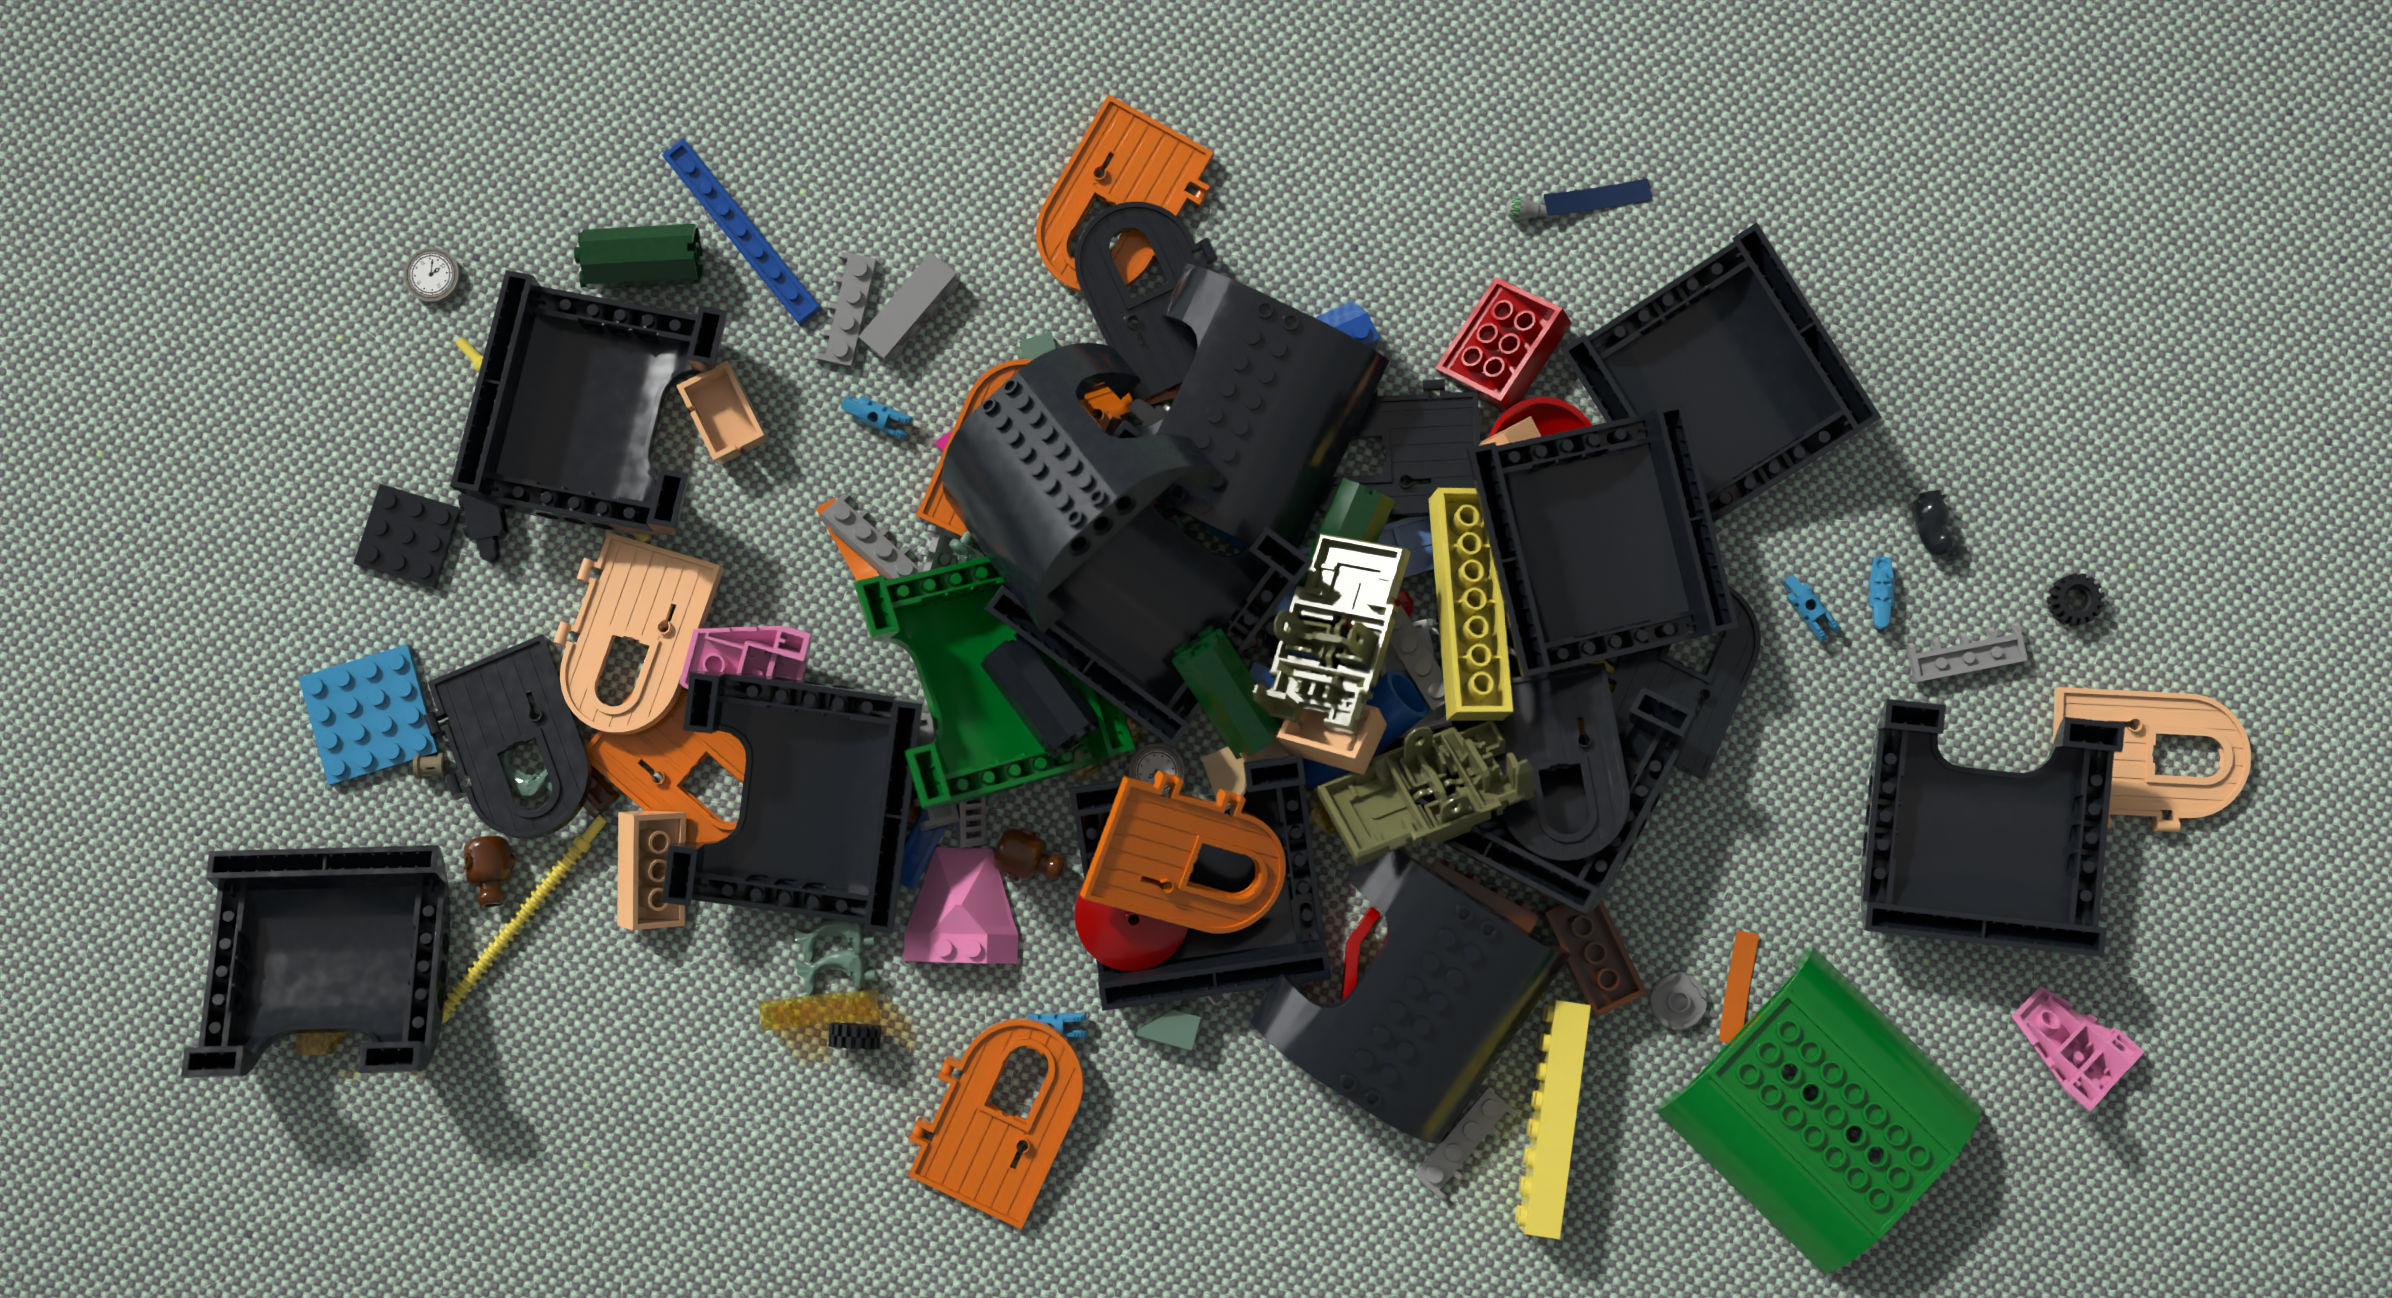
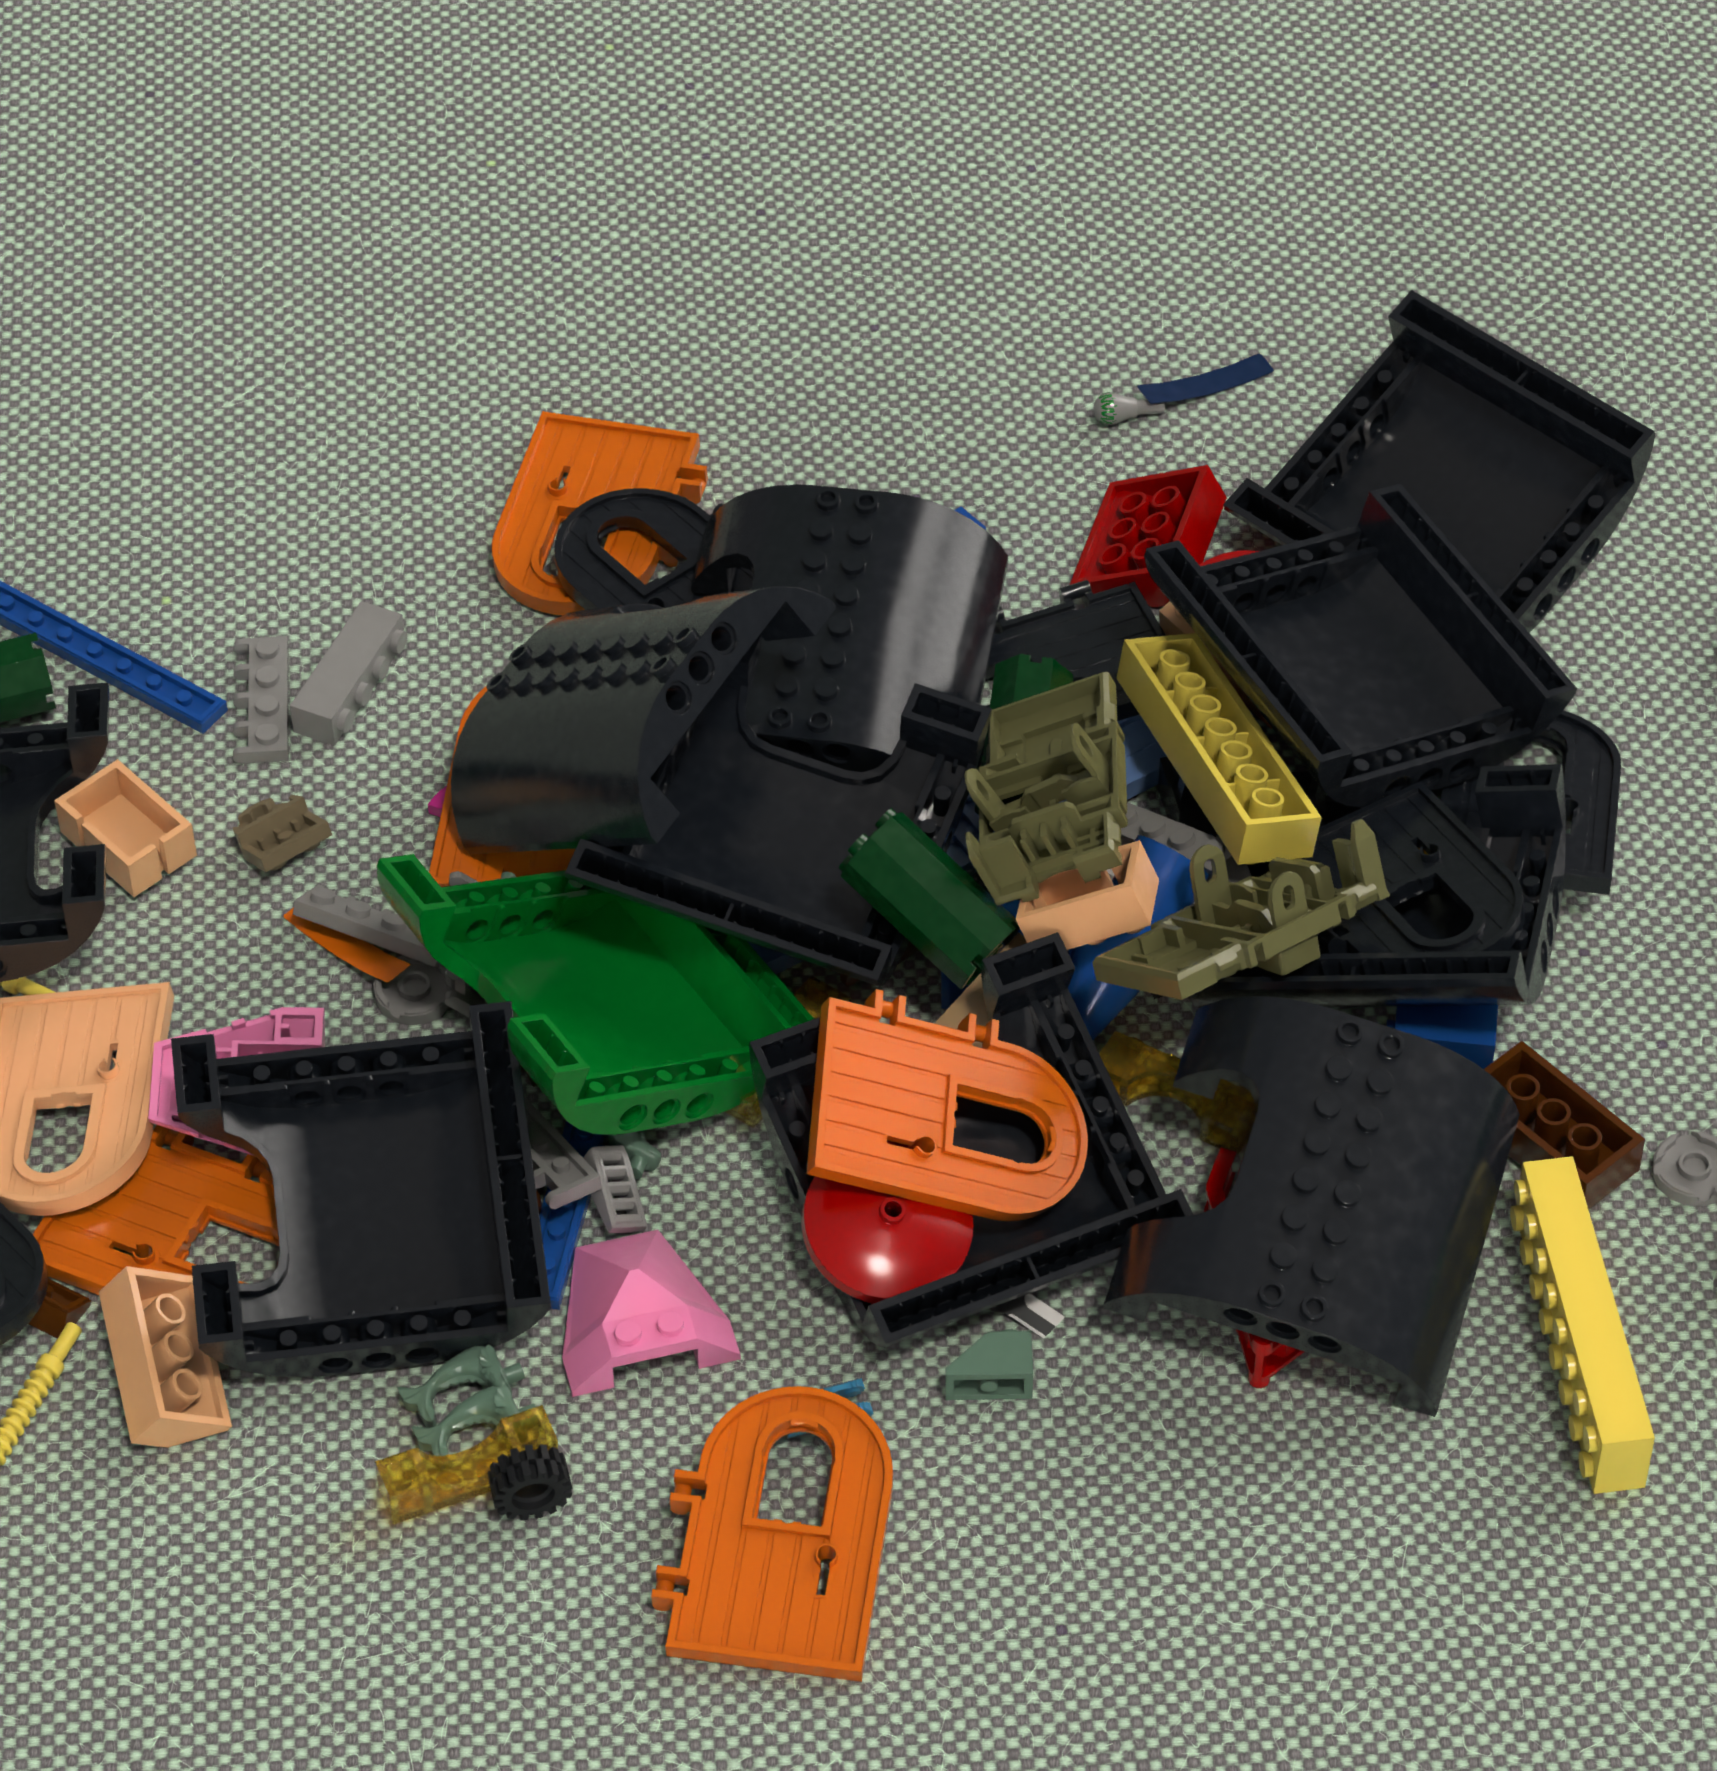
camera: 20 degrees left, 35 degrees down
(826, 440) = (278, 832): none -> dark tan slope
(864, 412) = (321, 789): dark azure hinge -> none
(1024, 855) = (707, 1213): reddish brown piece -> none
(1040, 695) = (670, 981): black brick -> none
(1462, 1141) = (1468, 1405): light grey hinge -> none
(1802, 594) = (1664, 706): dark azure hinge -> none

